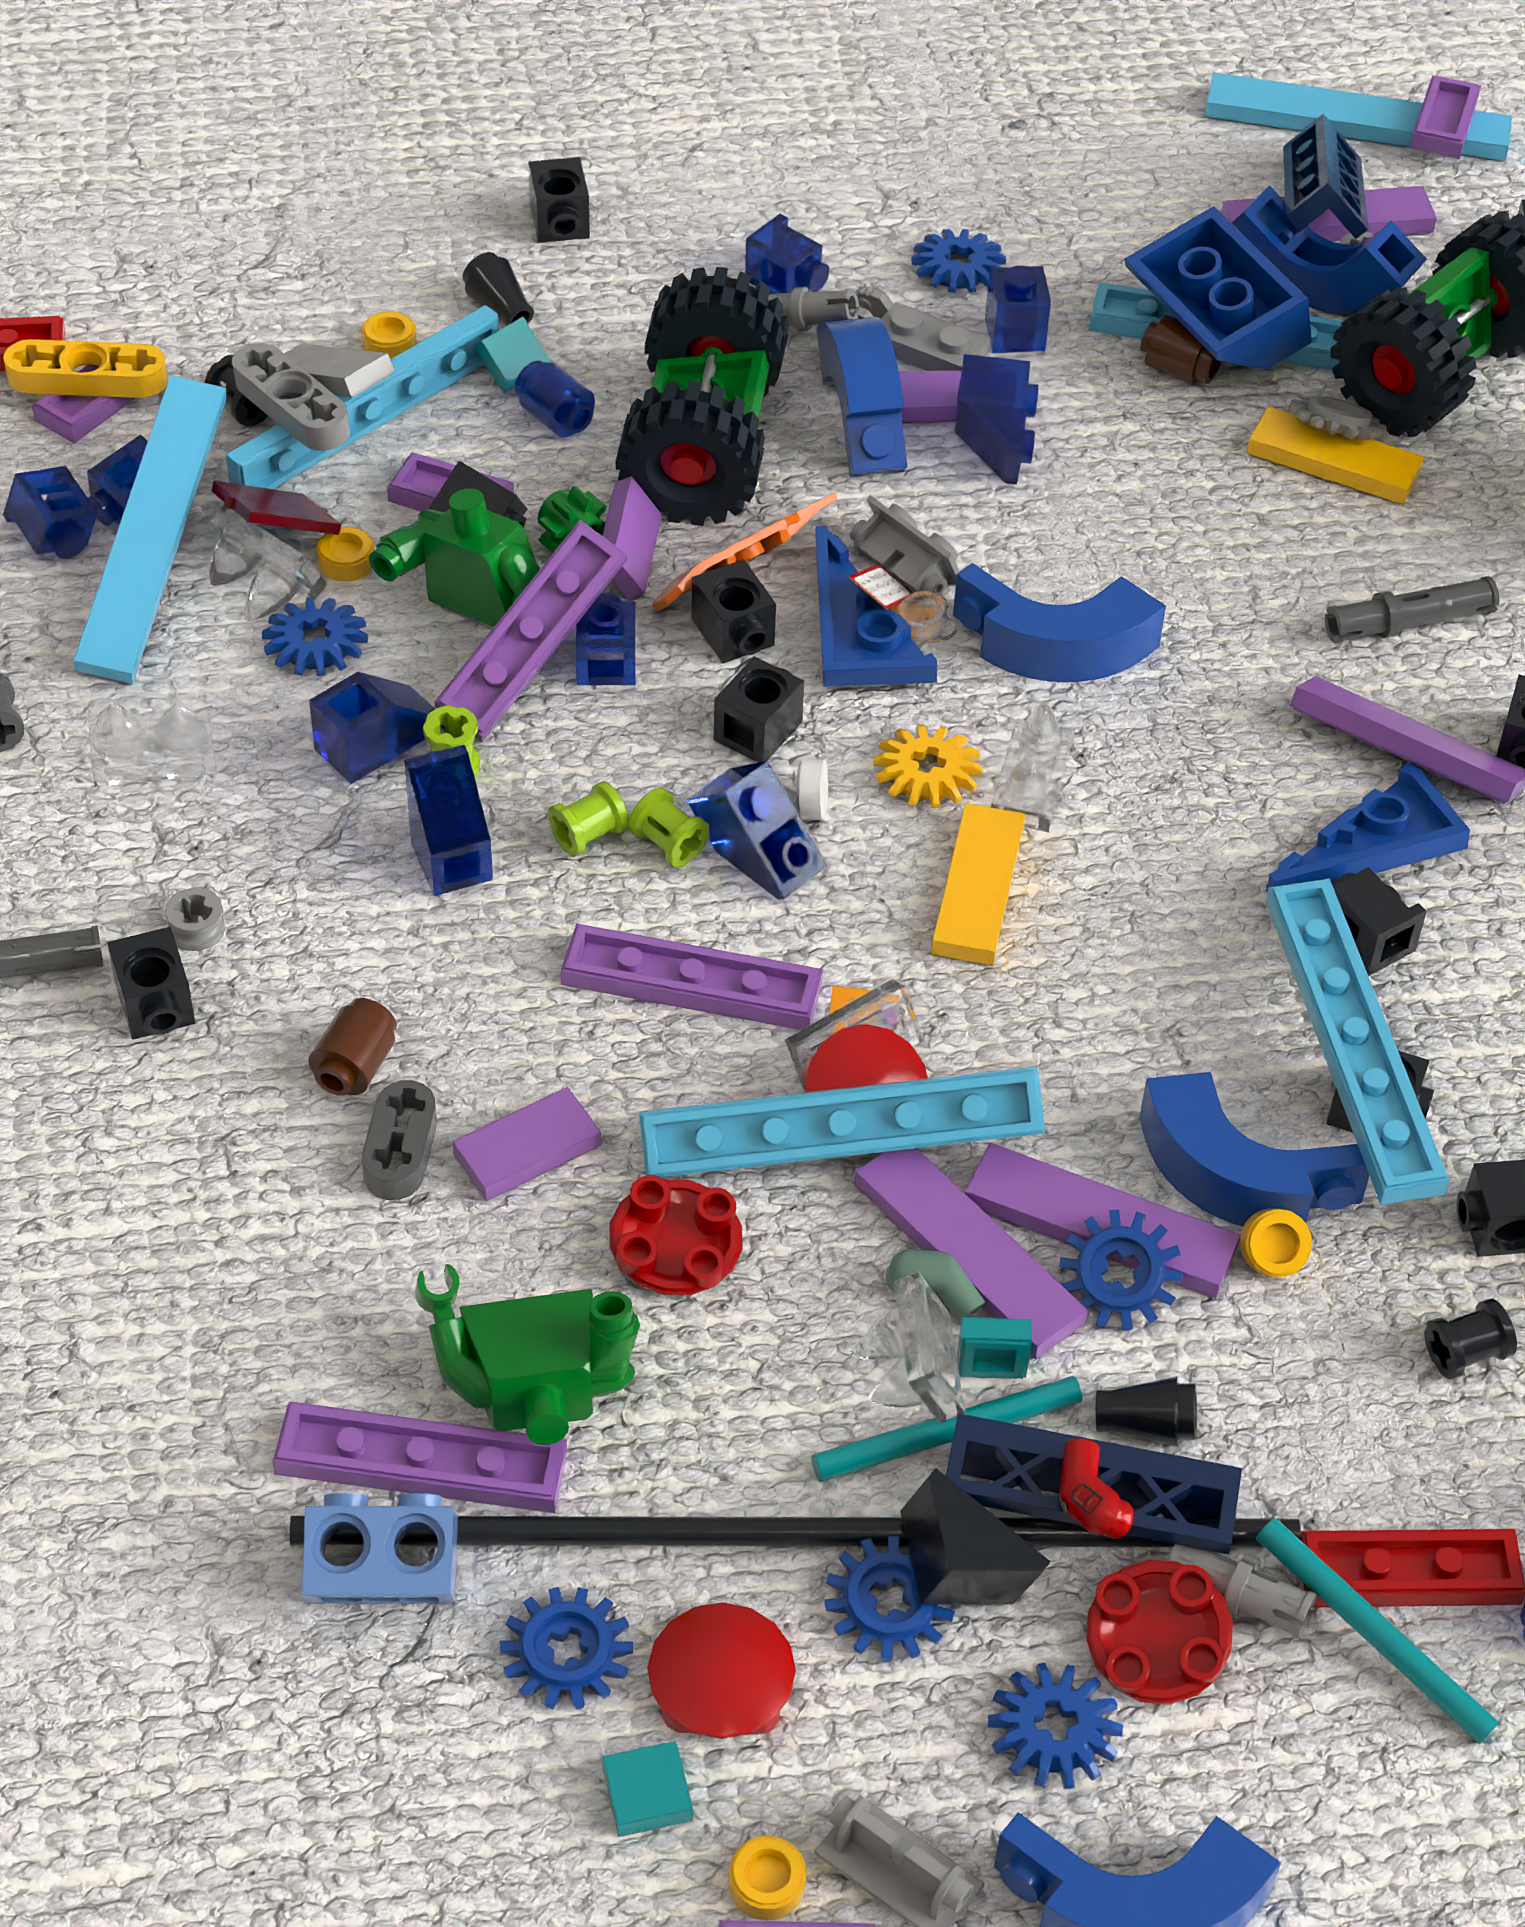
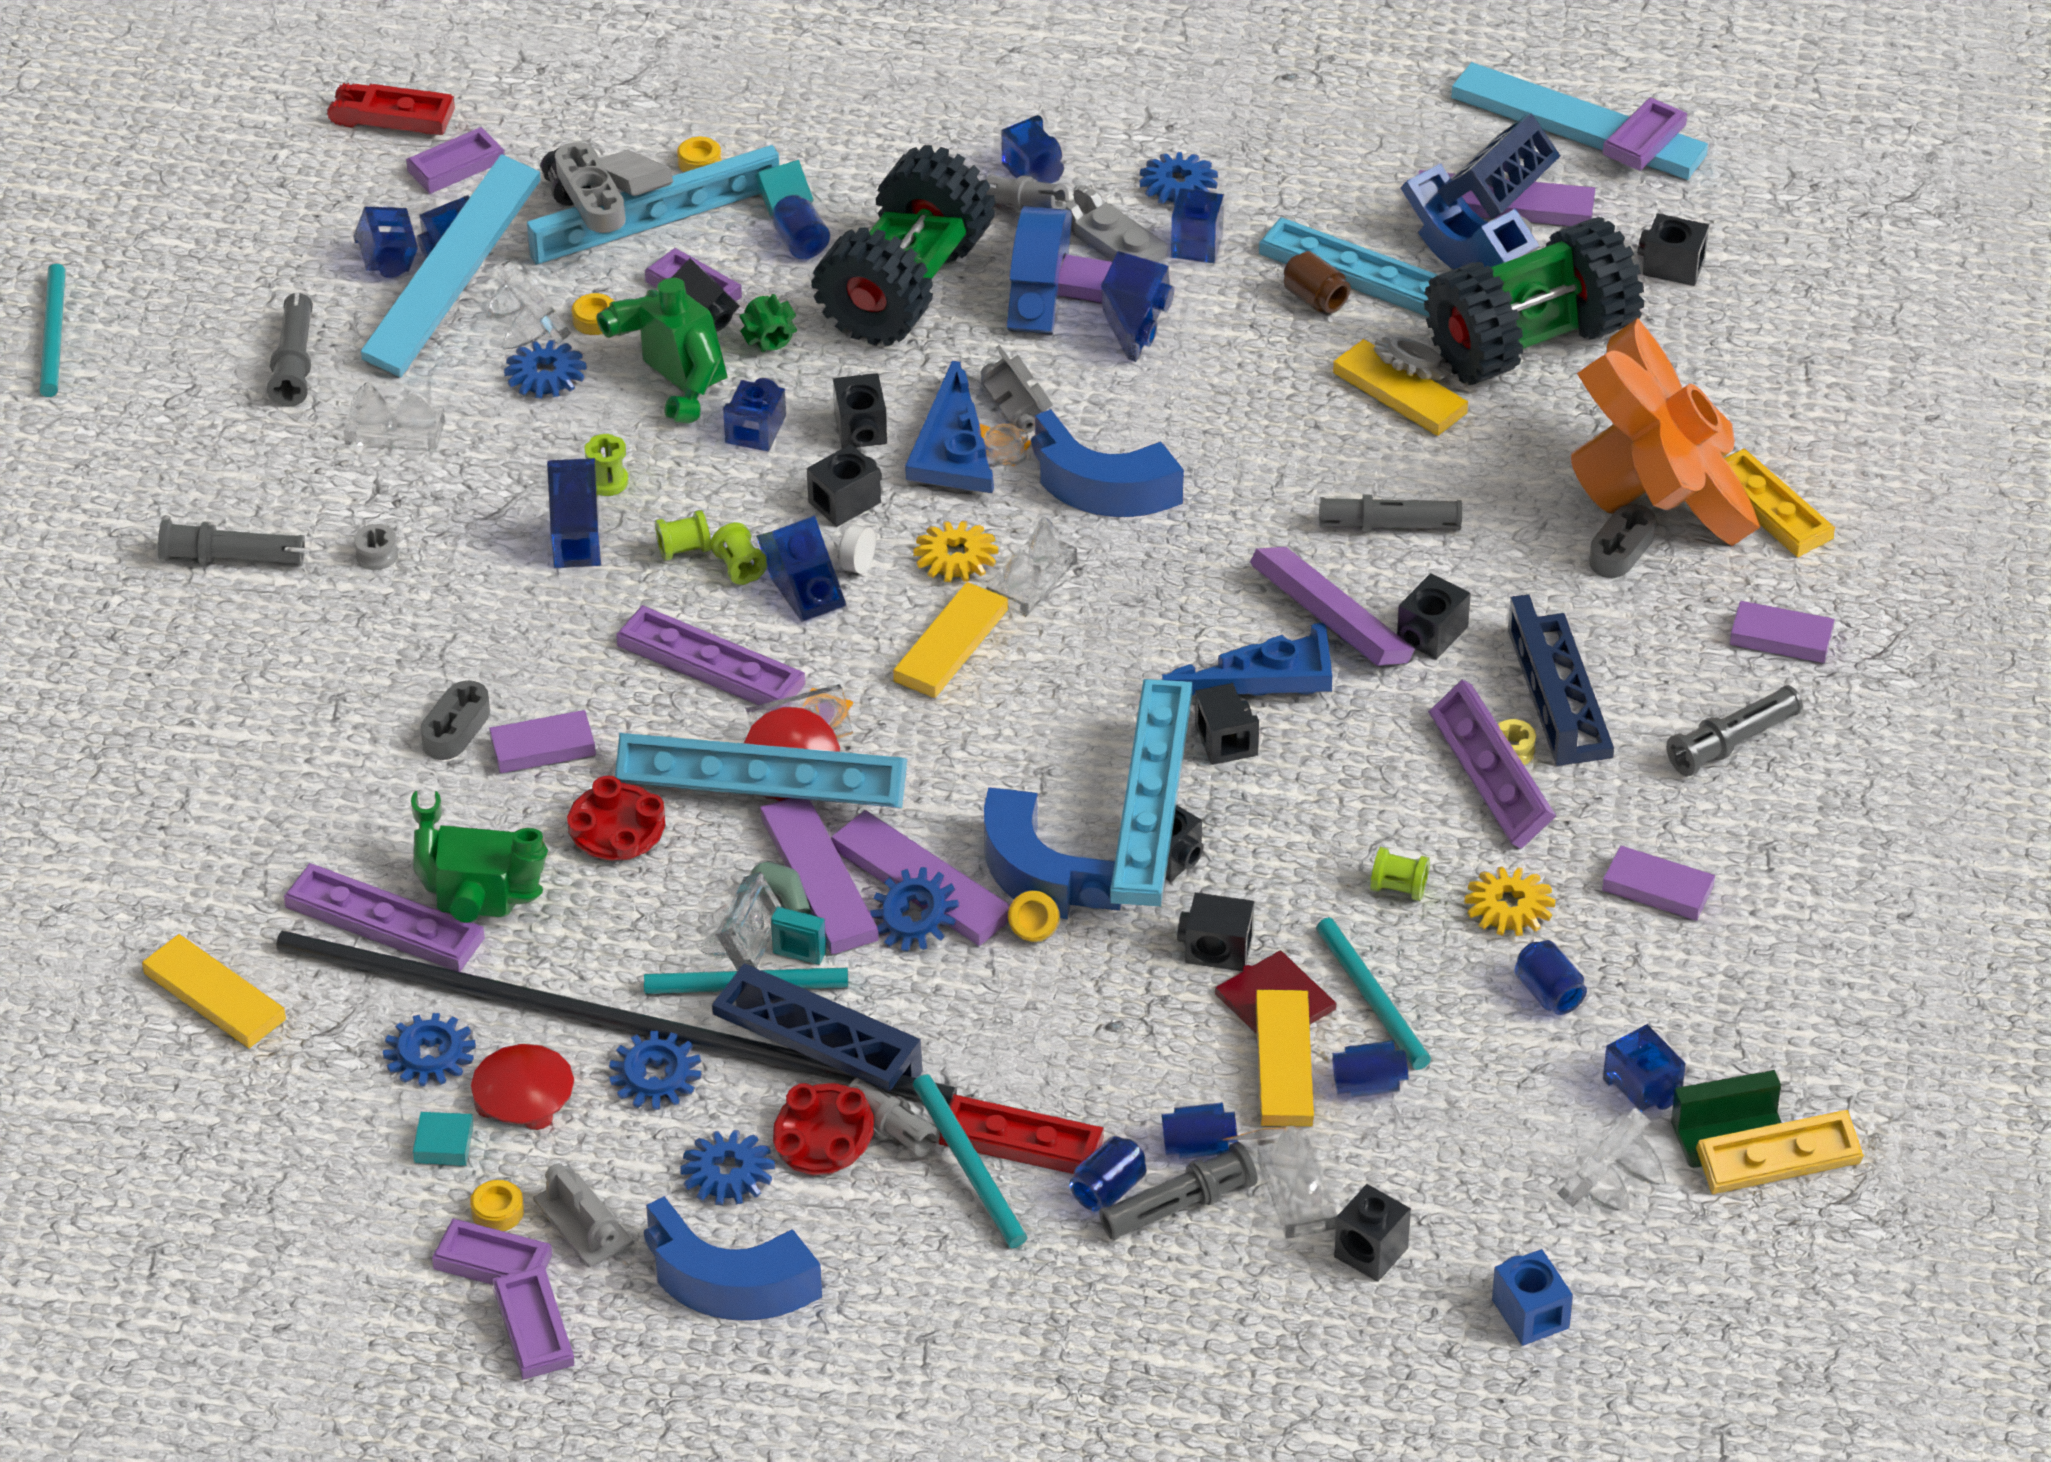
camera: 20 degrees right, 5 degrees down
(138, 367) = (426, 130): yellow beam -> none
(151, 983) = (325, 581): black brick -> none
(228, 1636) = (214, 991): none -> yellow tile
(276, 507) = (550, 268): dark red piece -> none
(353, 1047) = (446, 652): reddish brown brick -> none
(366, 723) = (549, 431): clear blue slope -> none
(378, 1572) = (322, 971): medium blue brick -> none
(494, 284) = (795, 133): black cone -> none
(533, 627) = (695, 392): medium lavender tile -> none
(559, 199) = (876, 72): black brick -> none
(633, 528) = (807, 342): medium lavender tile -> none
(746, 549) = (896, 366): orange piece -> none
(881, 586) = (977, 413): white sticker -> none
(963, 1549) = (711, 1048): black slope -> none
(1087, 1497) = (800, 1027): red arm -> none
(1150, 1411) = (890, 999): black cone -> none
(1225, 292) = (1354, 243): blue slope -> none
(1470, 1338) = (1139, 1006): black bush -> none

